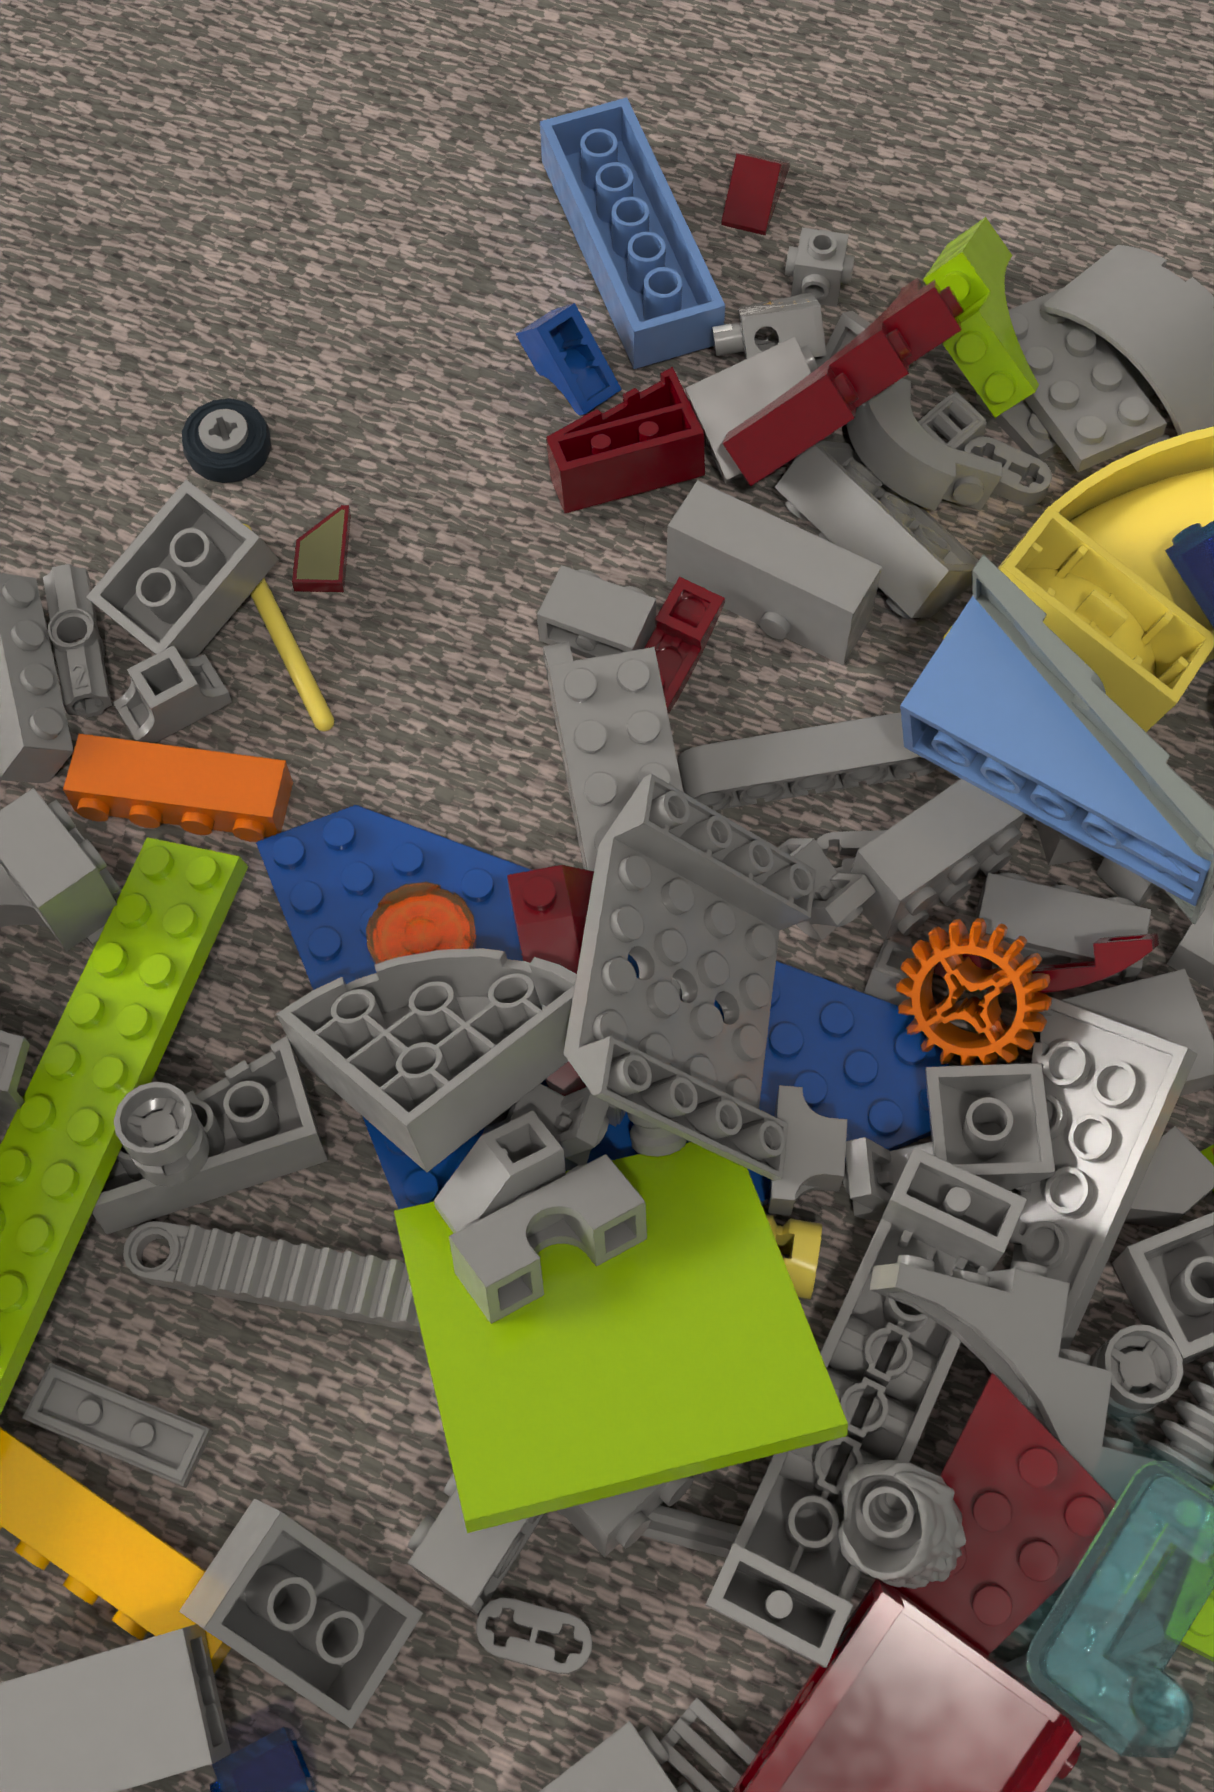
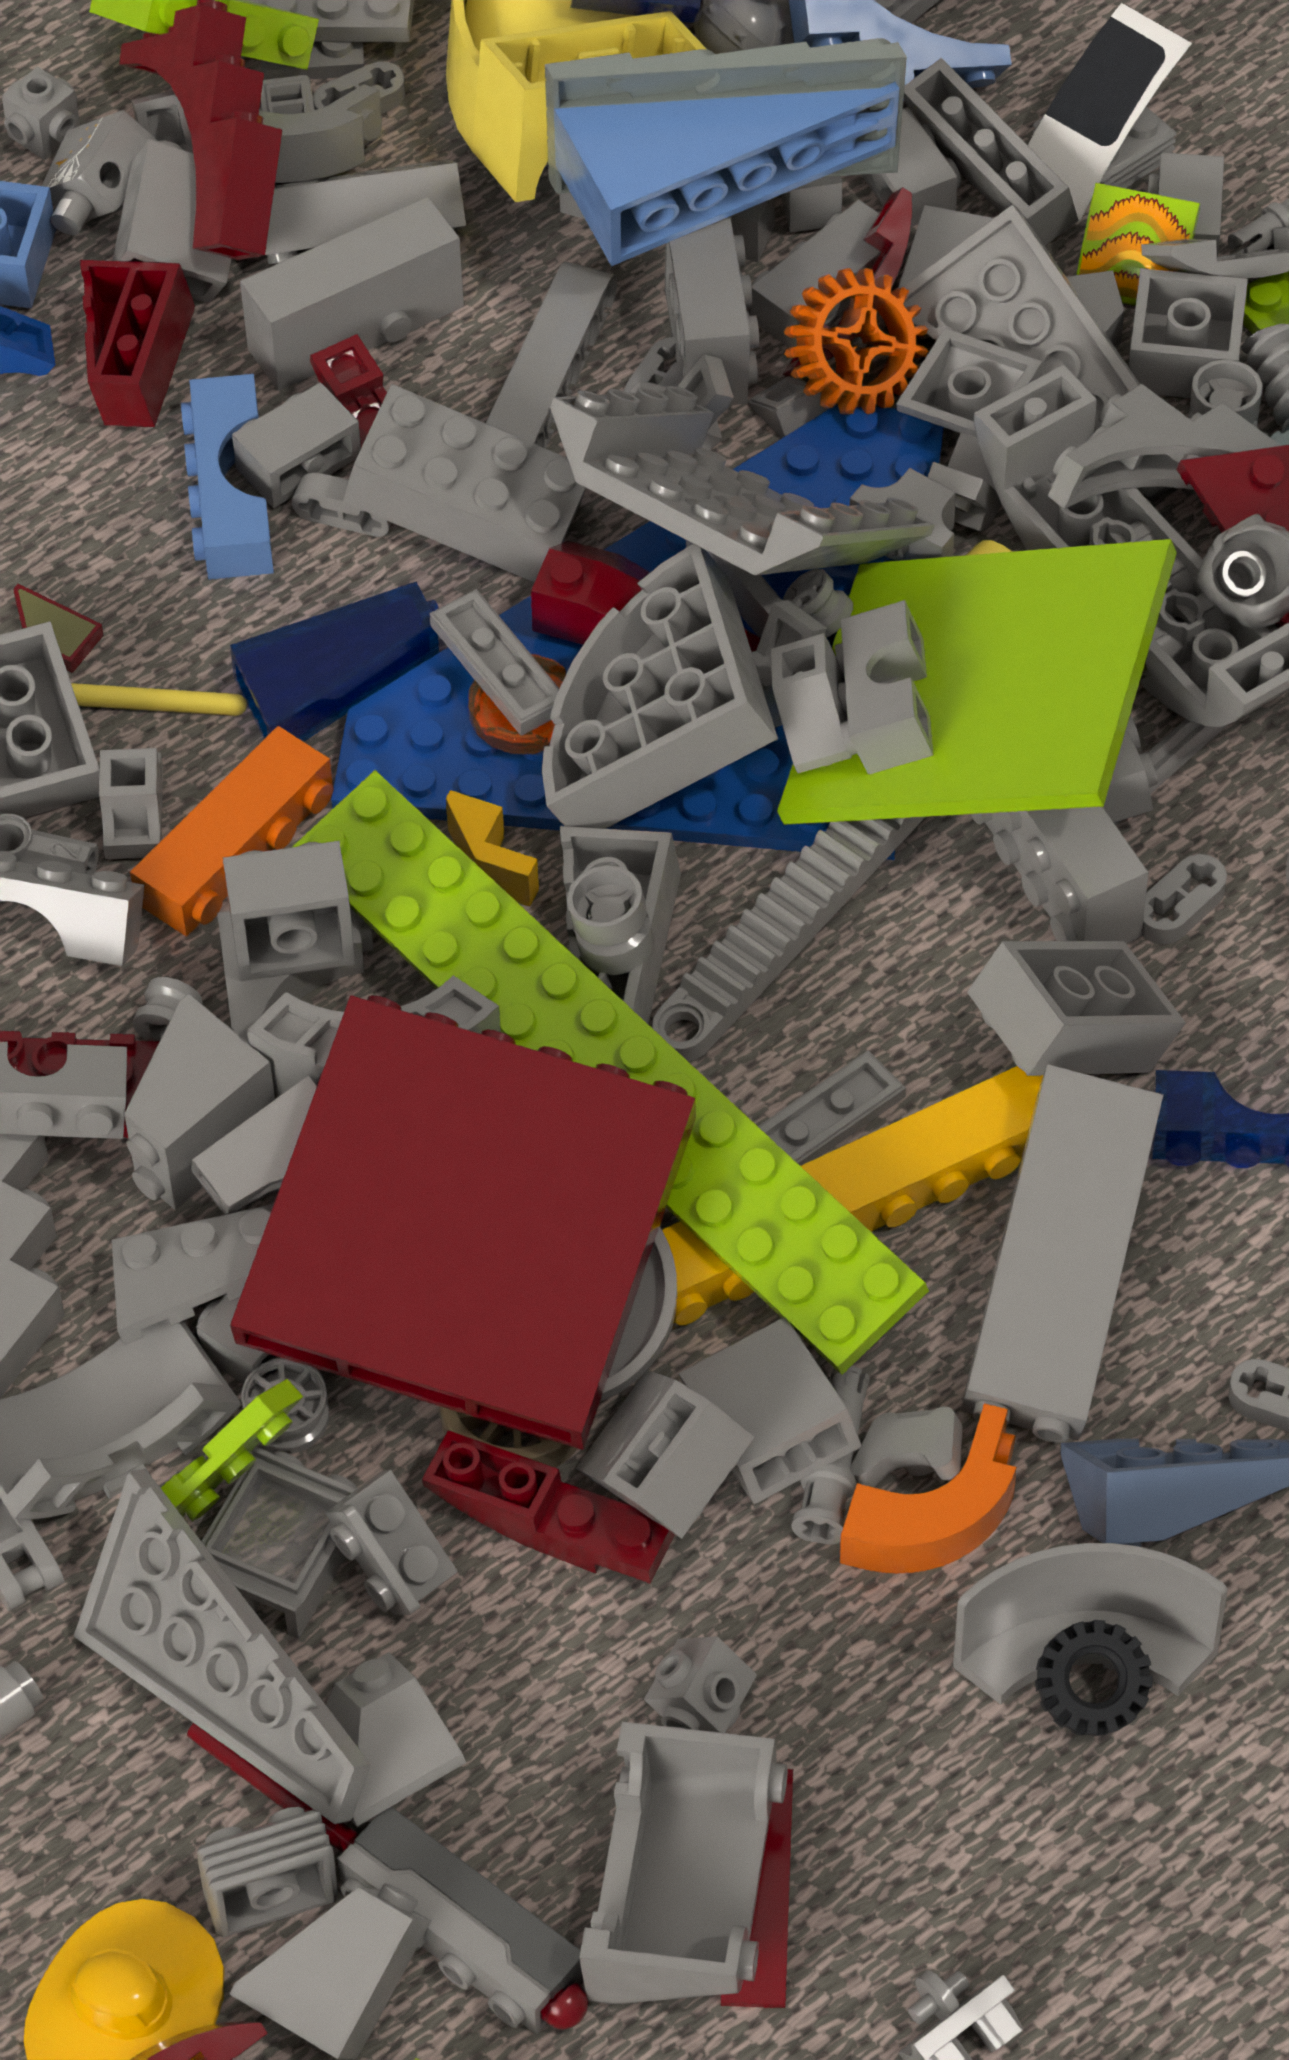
camera: 60 degrees left, 10 degrees down
(266, 976) = (479, 832): none -> yellow slope
(390, 766) = (330, 662): none -> clear blue slope
(439, 888) = (496, 660): none -> light grey tile
(485, 618) = (234, 523): none -> medium blue arch

